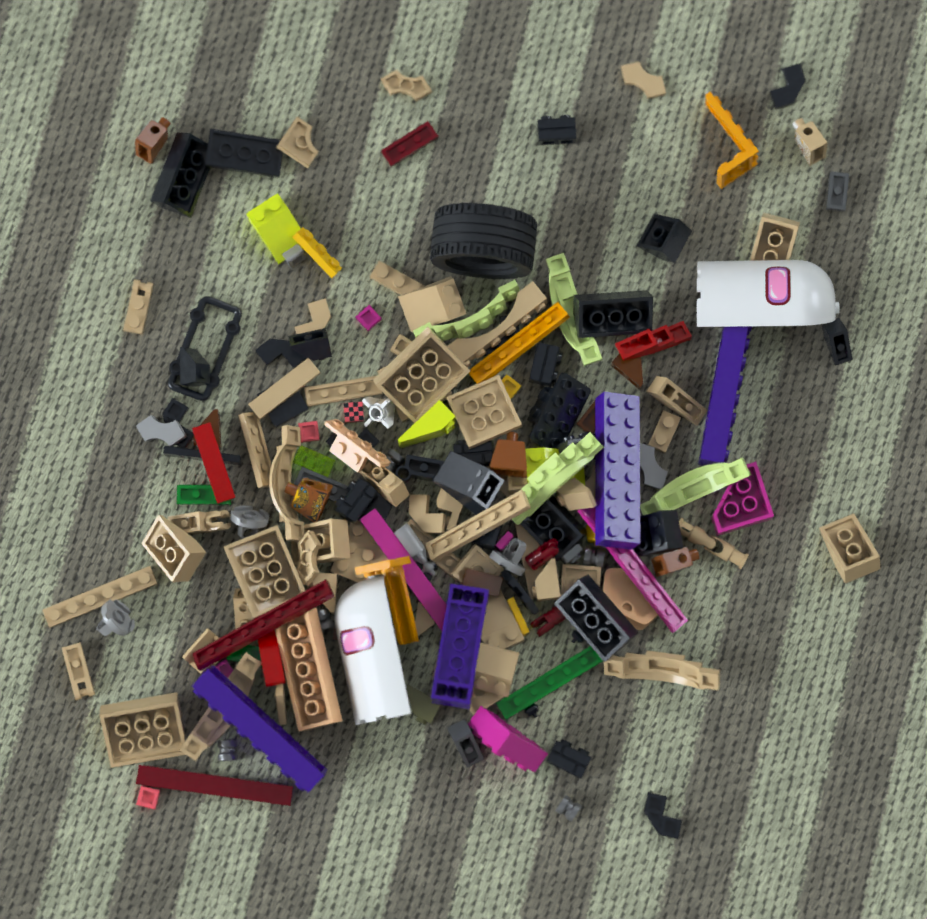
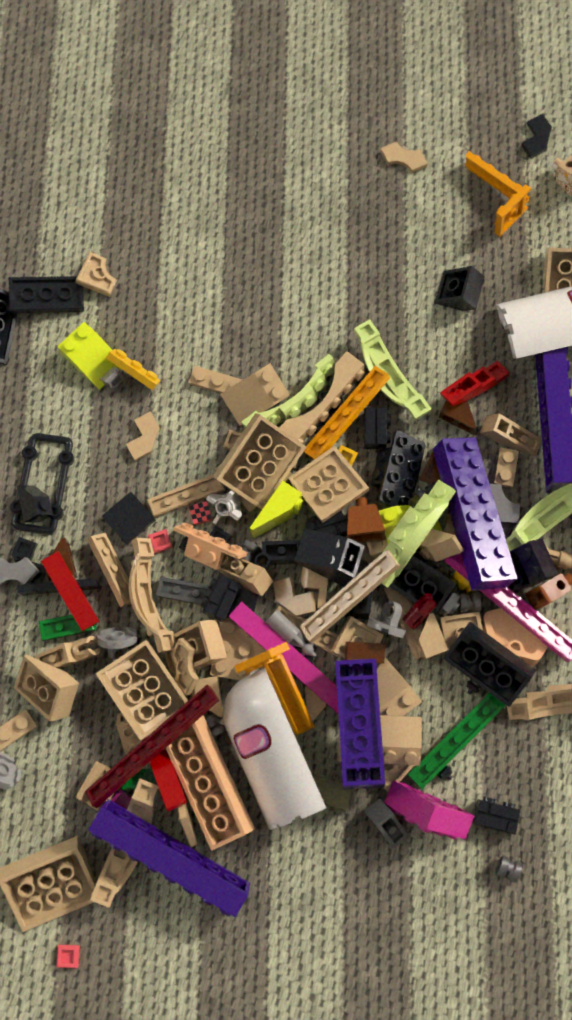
camera: 10 degrees left, 5 degrees down
(214, 785) = (135, 927): dark red tile -> none
(227, 750) = (141, 886): flat silver wheel -> none
(274, 348) = (111, 468): black tile -> none
(284, 388) = (127, 504): tan tile -> none
(309, 497) = (173, 605): dark orange torso -> none
(312, 344) = (146, 456): black slope -> none
(314, 461) = (171, 568): clear neon green plate -> none
(368, 318) = (196, 421): dark pink tile -> none
(409, 144) = (200, 255): dark red plate -> none
(414, 87) = (178, 205): tan tile -> none
(483, 241) = (292, 318): black tyre -> none
(503, 542) = (377, 607): dark pink tile -> none
(518, 616) = (409, 678): yellow tile -> none
(521, 593) = (396, 647): black tile -> none
(552, 617) = (443, 673): dark red hinge -> none
(556, 130) = (335, 215): black brick -> none
(613, 313) = (430, 366): black slope -> none

